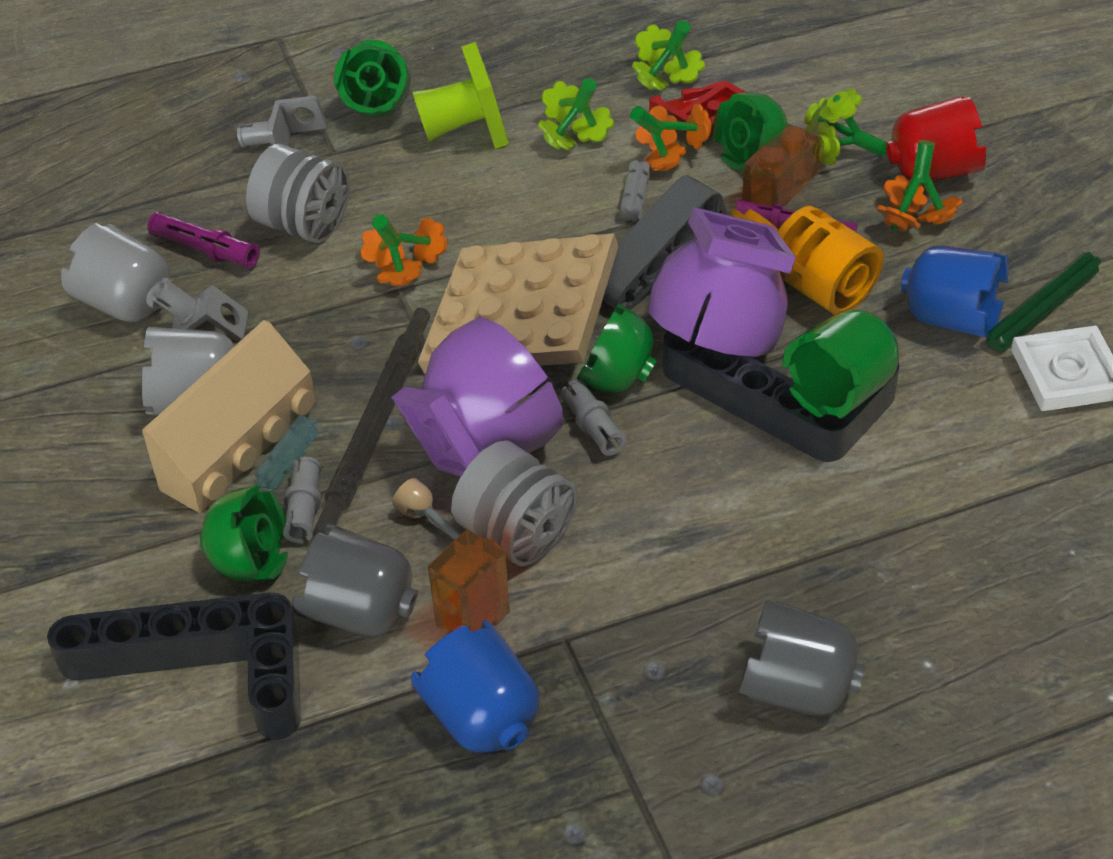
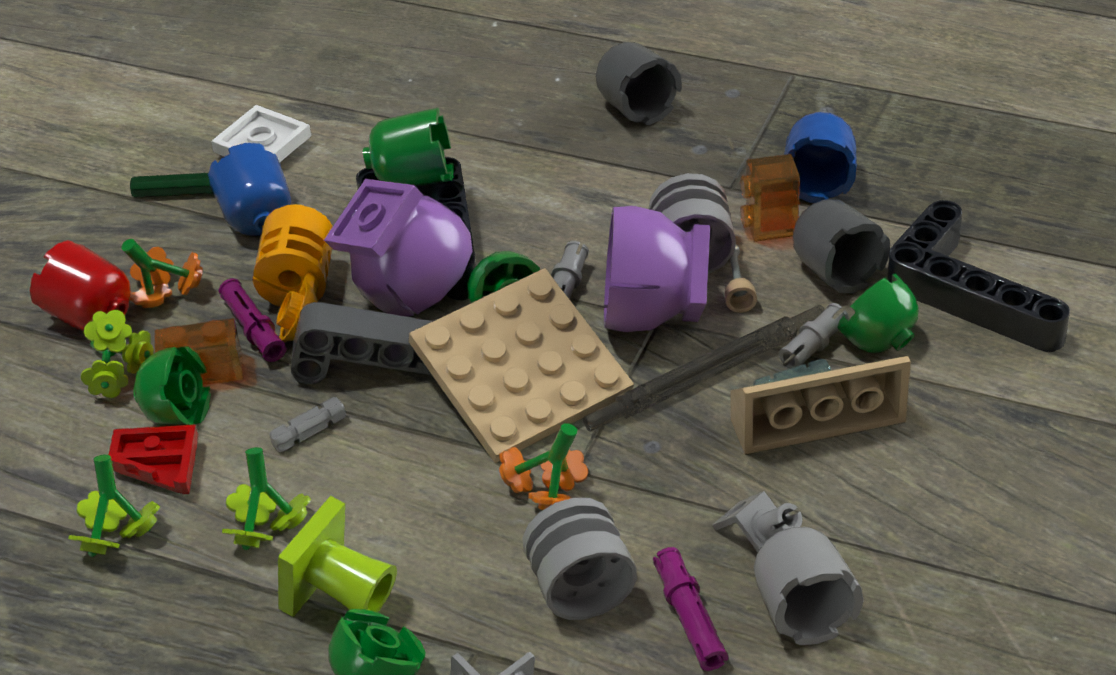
camera: 135 degrees left, 5 degrees down
(177, 362) = (823, 451): light grey cylinder -> none
(659, 132) = (243, 433): orange plant -> none

